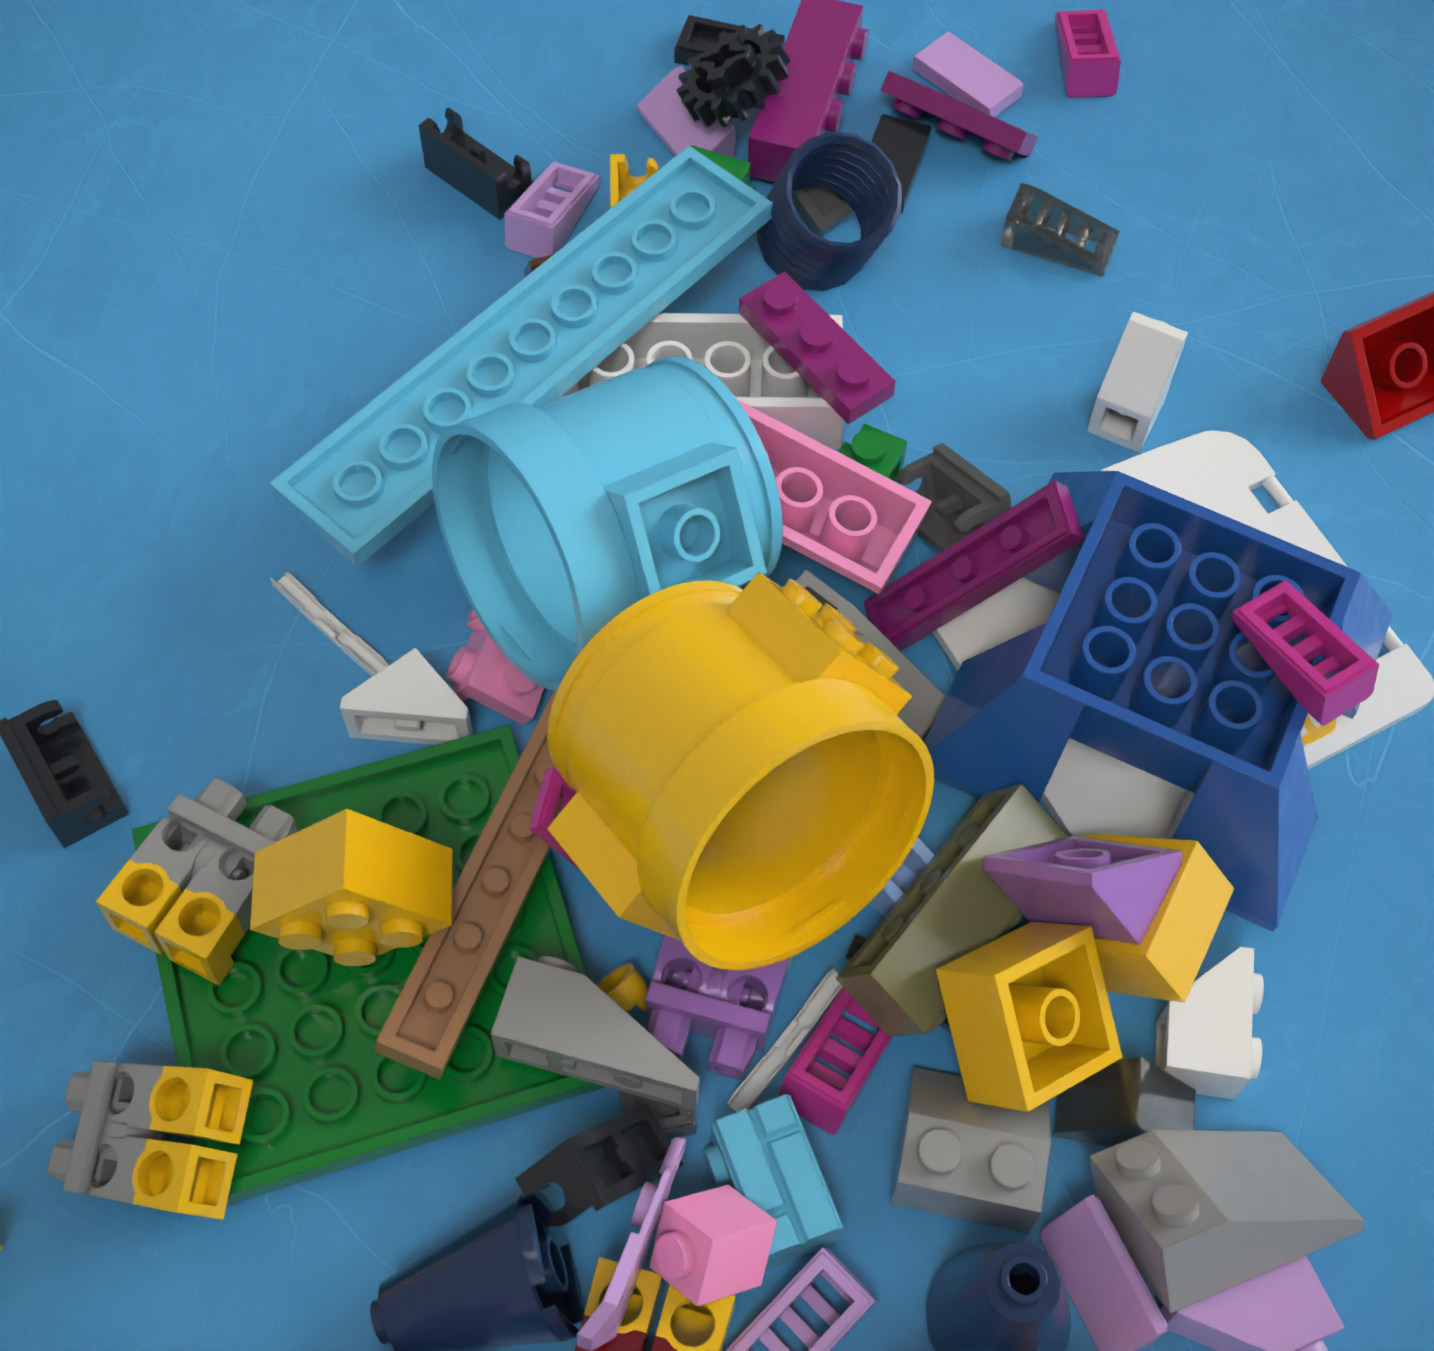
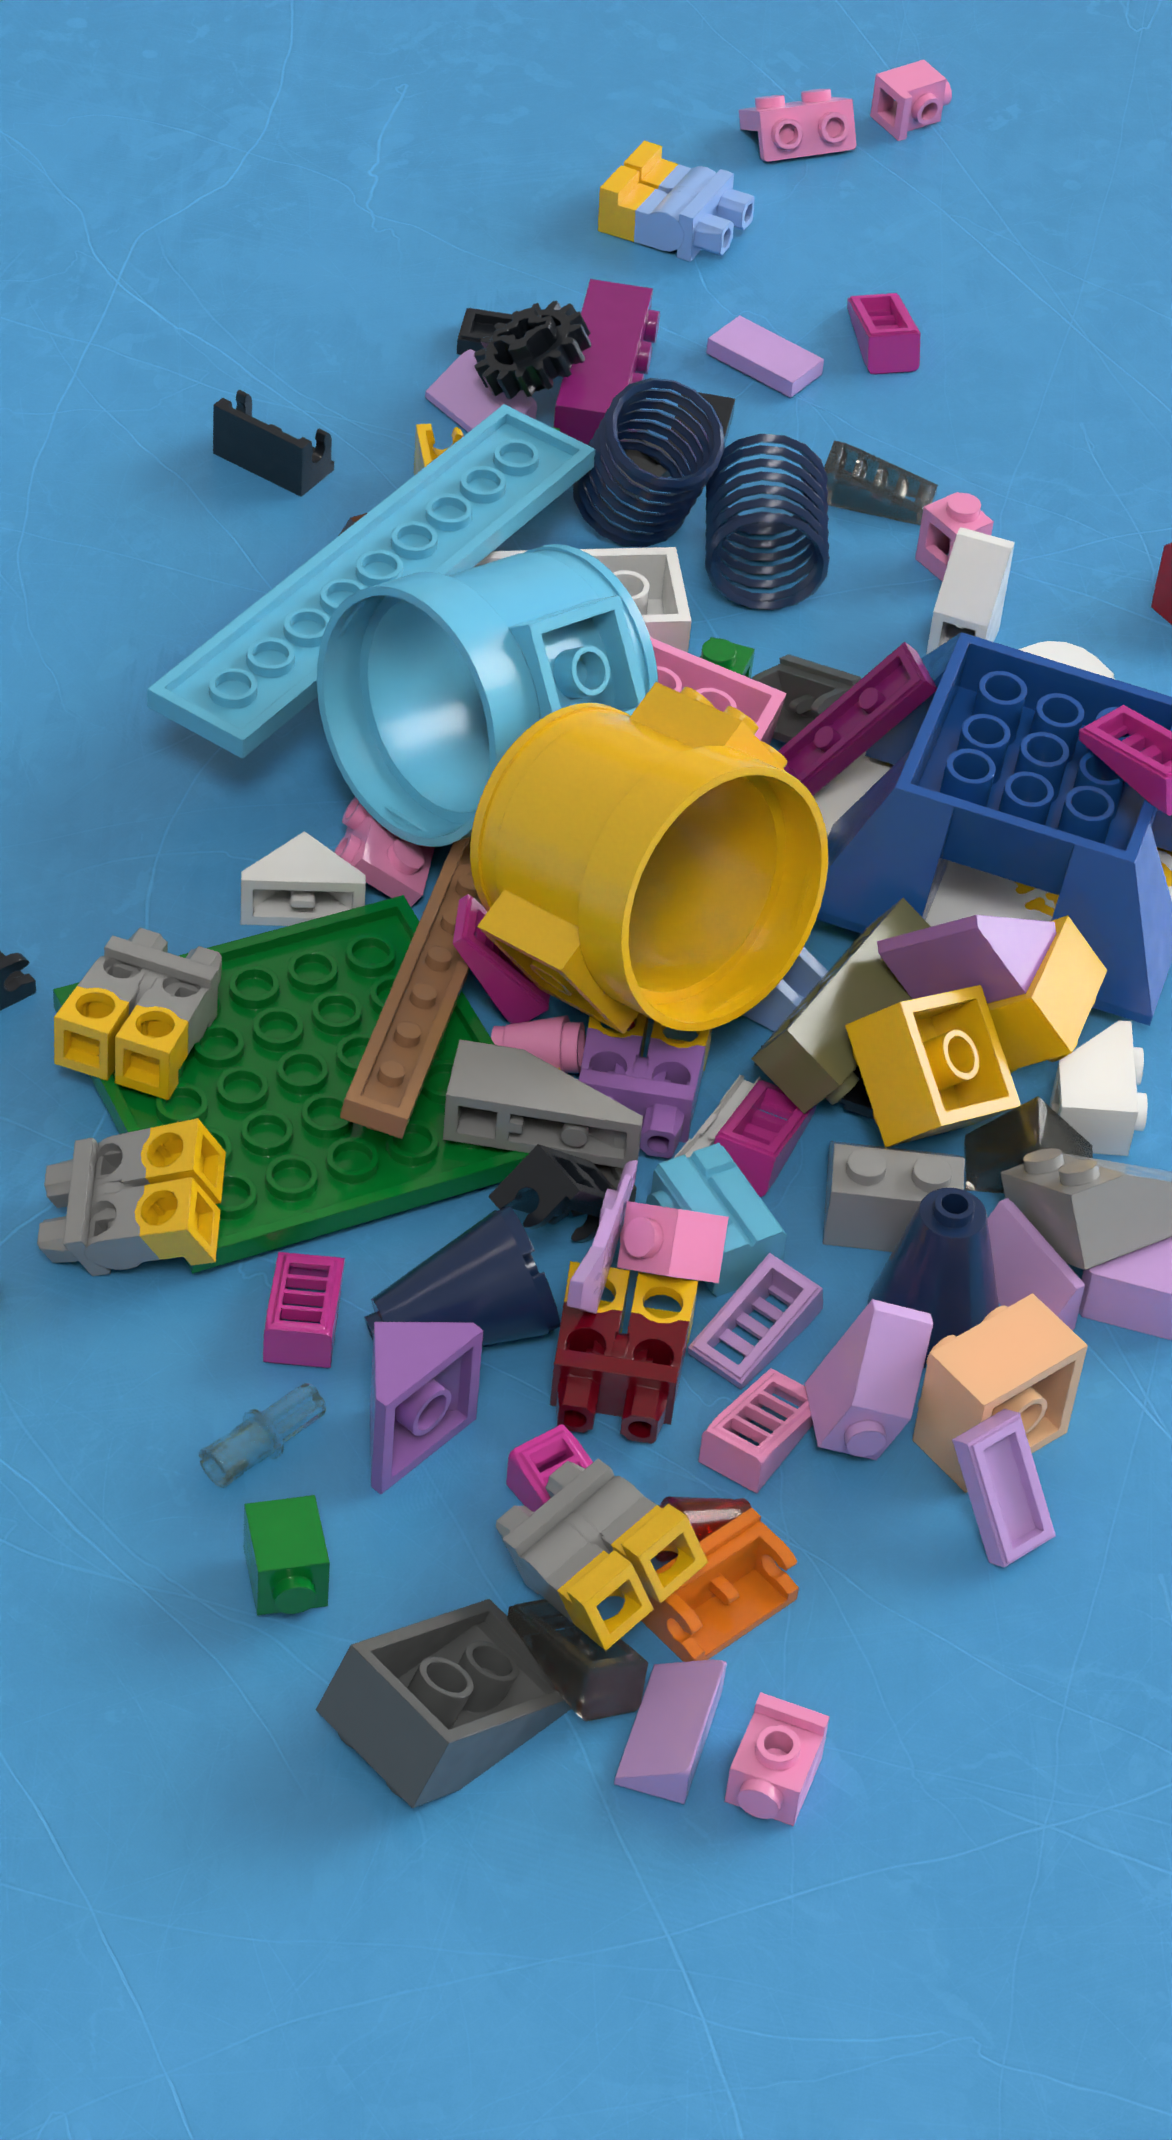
camera: 10 degrees left, 15 degrees down
(307, 1326) = (301, 1341): none -> dark pink slope
(329, 625) = (197, 833): white piece -> none
(351, 888) = (300, 986): yellow brick -> none
(546, 215) = (352, 482): lavender slope -> none
(600, 926) = (550, 1039): none -> bright pink cone
(817, 347) = (657, 571): magenta plate -> none
(896, 258) = (809, 522): none -> dark blue piece
(958, 117) = (761, 389): magenta plate -> none
(1131, 287) = (940, 526): none -> bright pink brick

